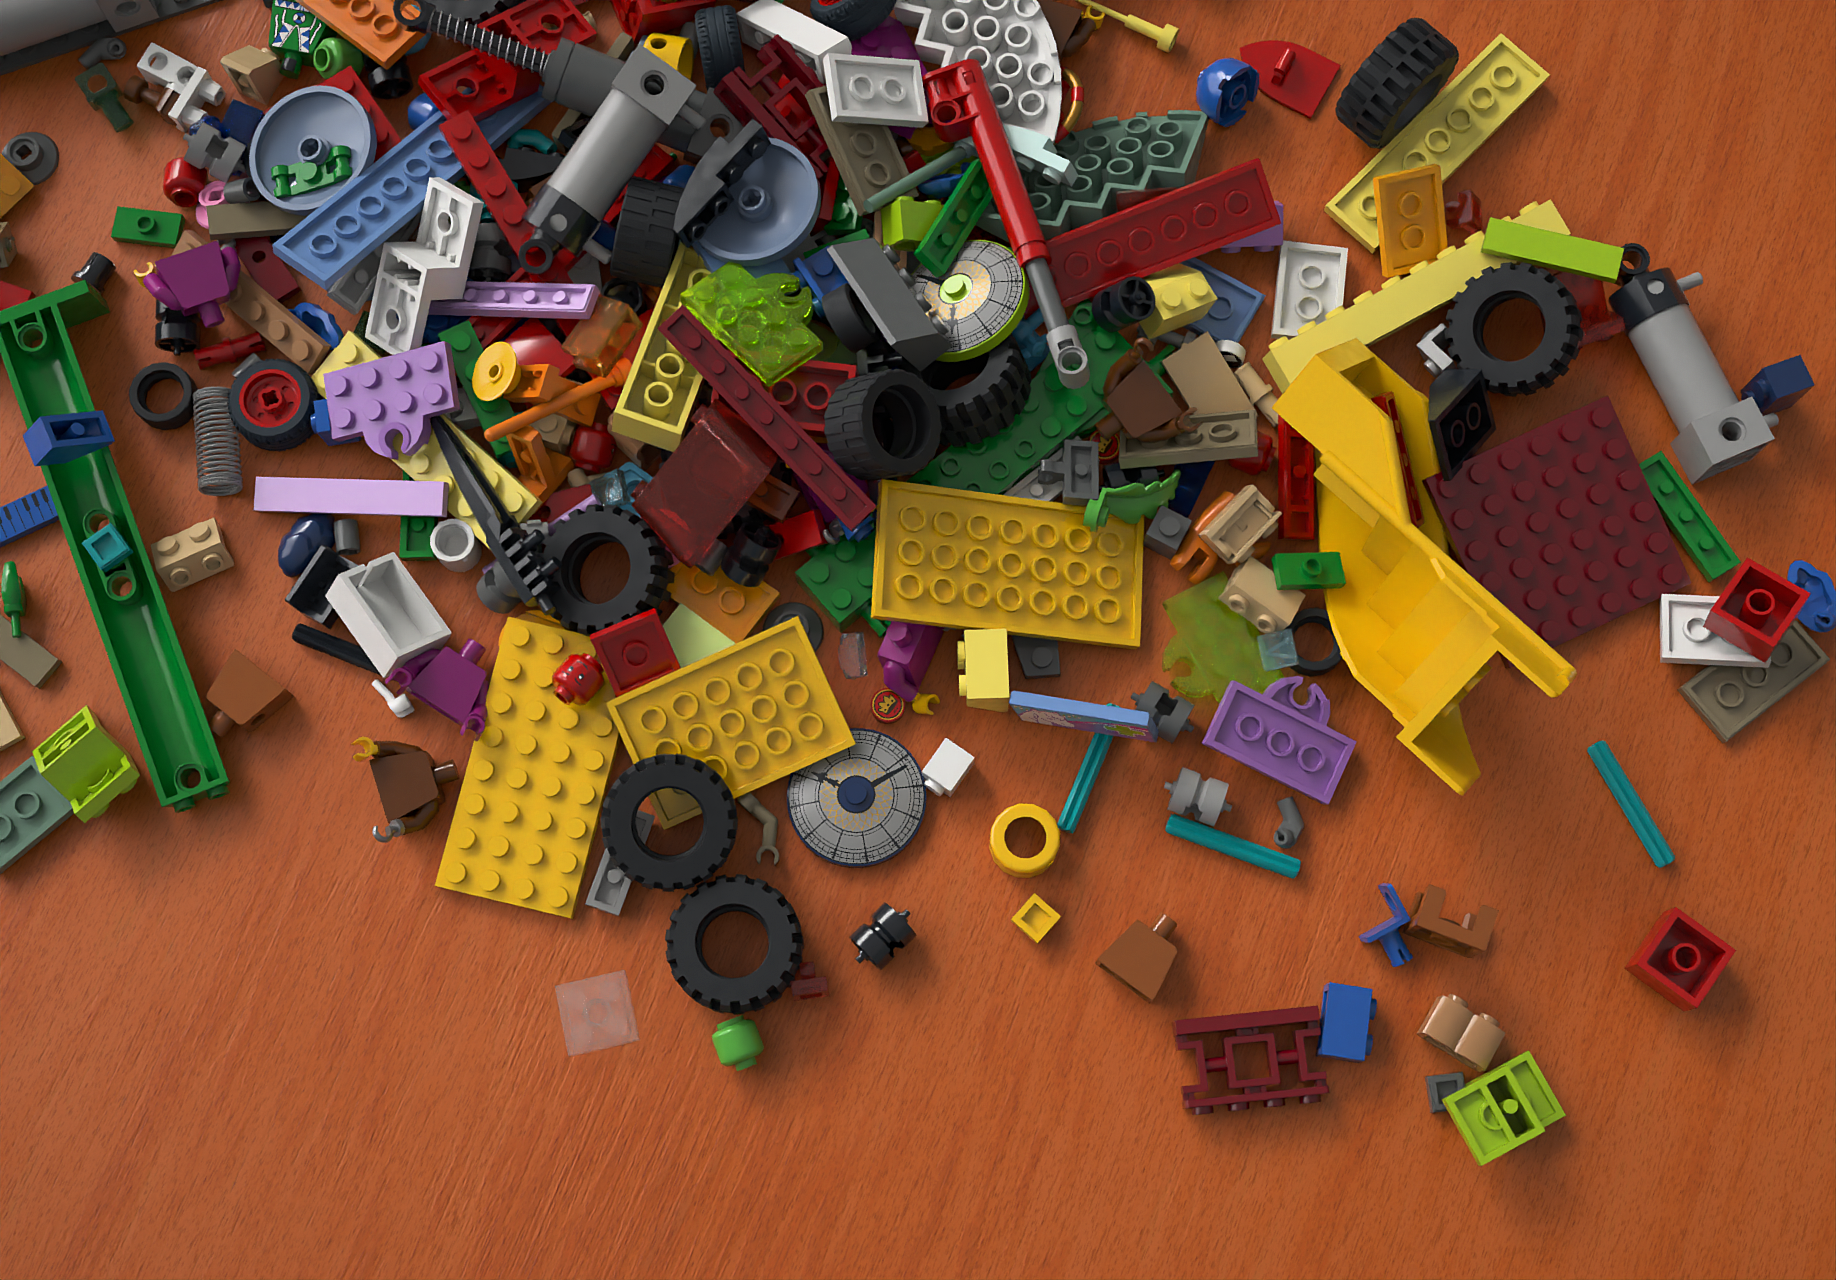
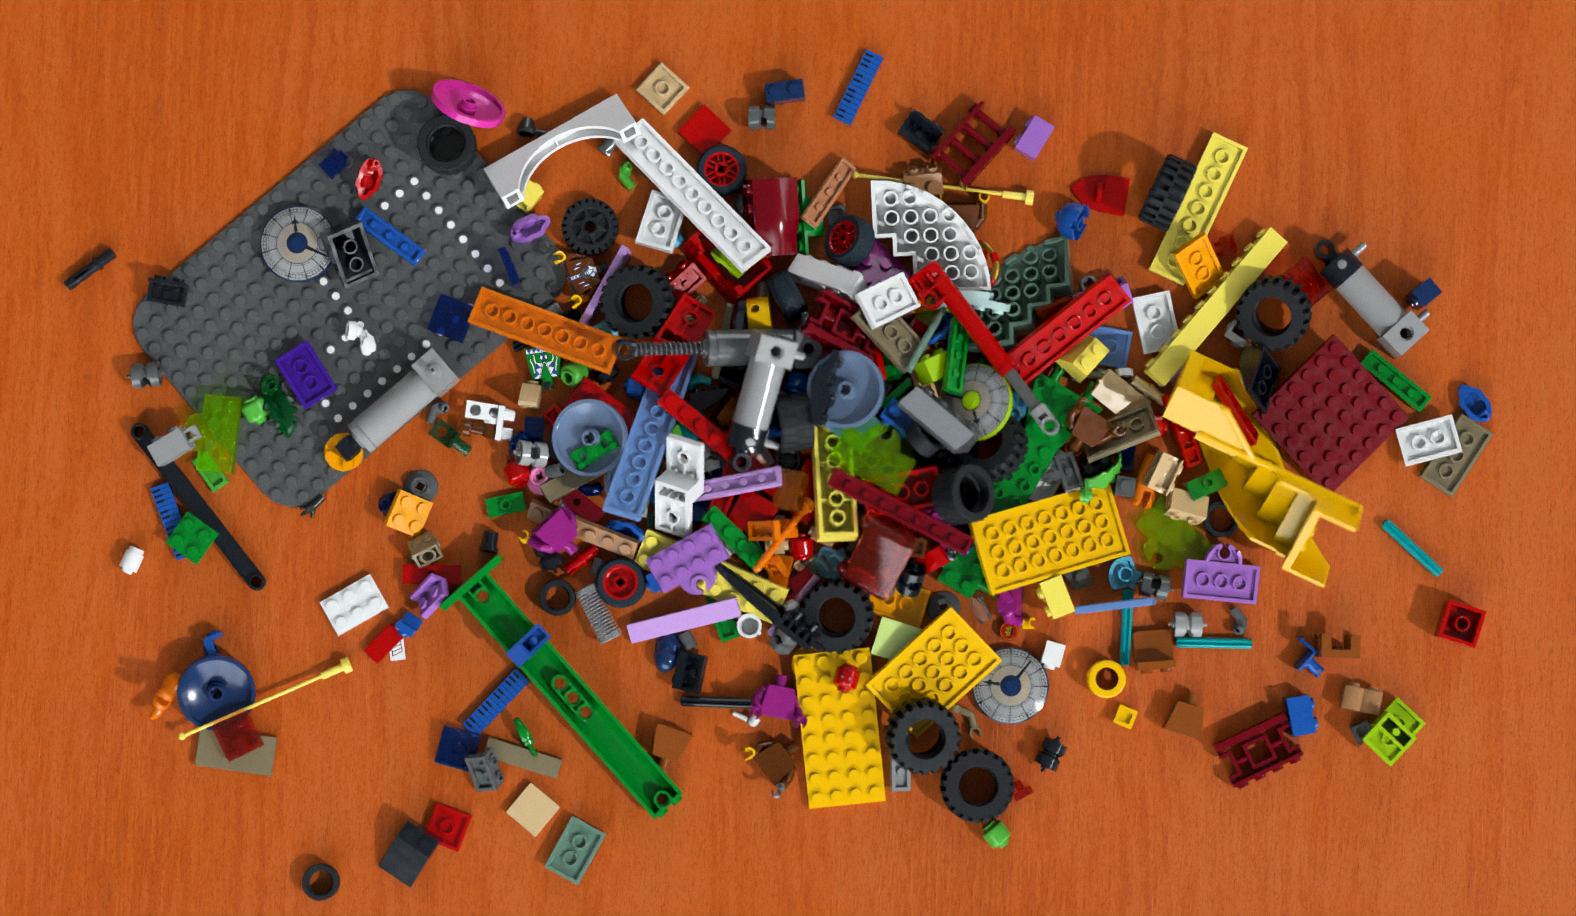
camera: 20 degrees left, 10 degrees up
(86, 764) = (604, 810): lime bracket -> none
(107, 547) = (571, 695): teal tile -> none
(191, 555) = (608, 678): tan bracket -> none
(387, 613) = (731, 677): white piece -> none
(496, 372) = (742, 531): yellow piece -> none
(597, 1013) = (917, 843): clear plate -> none
(635, 652) = (871, 654): red plate -> none
(1116, 676) = (1123, 573): none -> medium azure animal
(1123, 304) = (1061, 374): black wheel -> none
(1123, 822) = (1153, 651): none -> dark orange bracket
(1278, 650) = (1204, 532): clear light blue tile -> none
(1552, 250) = (1280, 260): lime tile -> none
(1756, 610) = (1446, 427): red brick -> none

